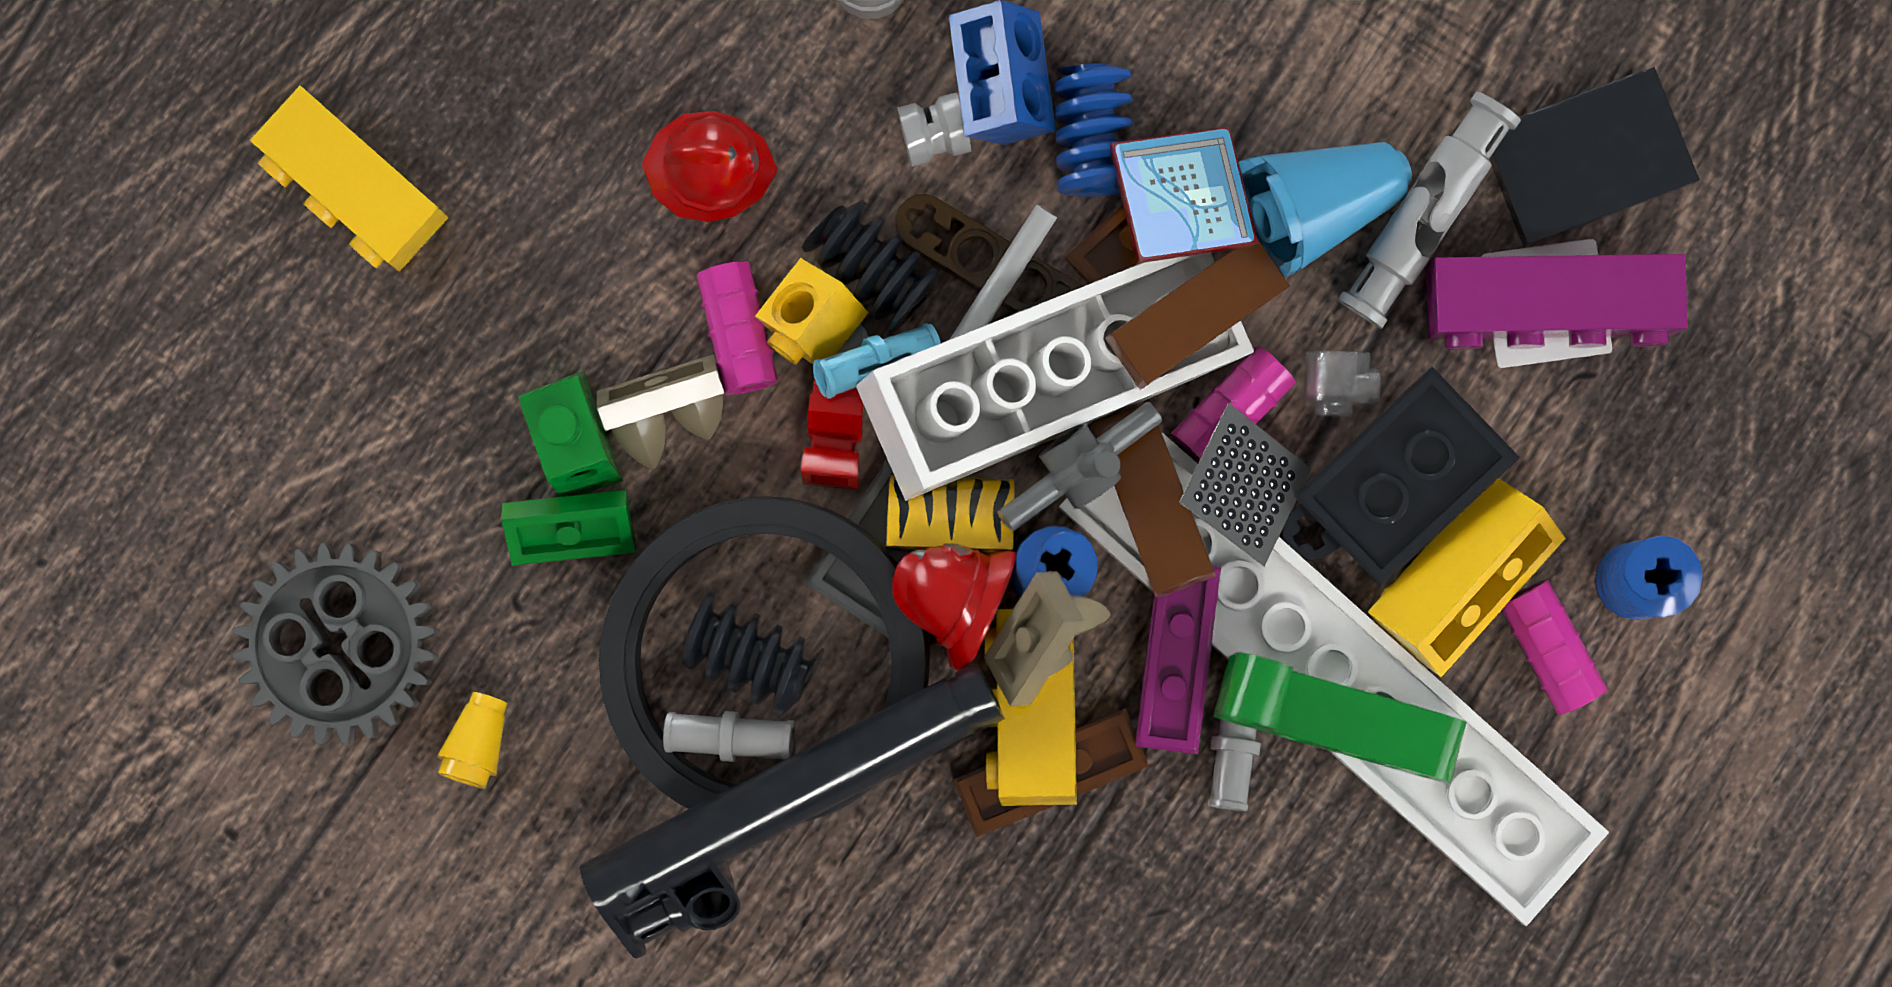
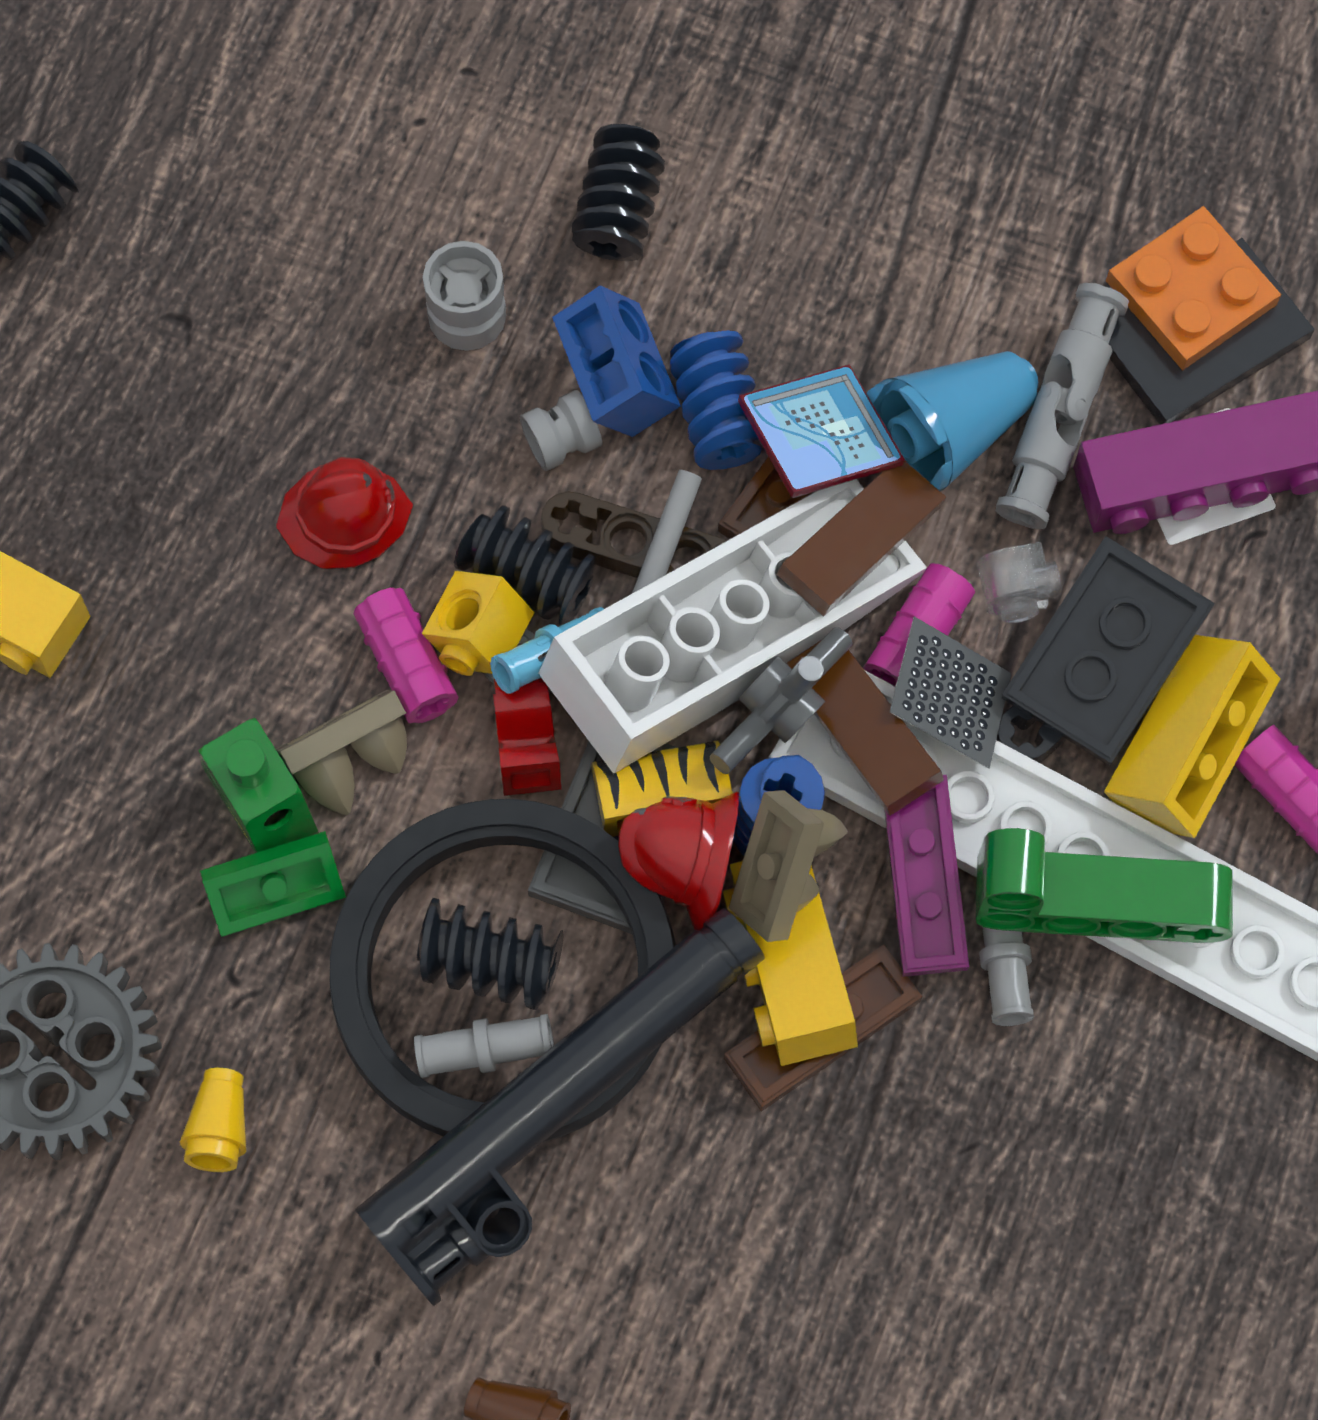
camera: 15 degrees left, 15 degrees down
(1590, 112) = (1193, 287): none -> orange plate

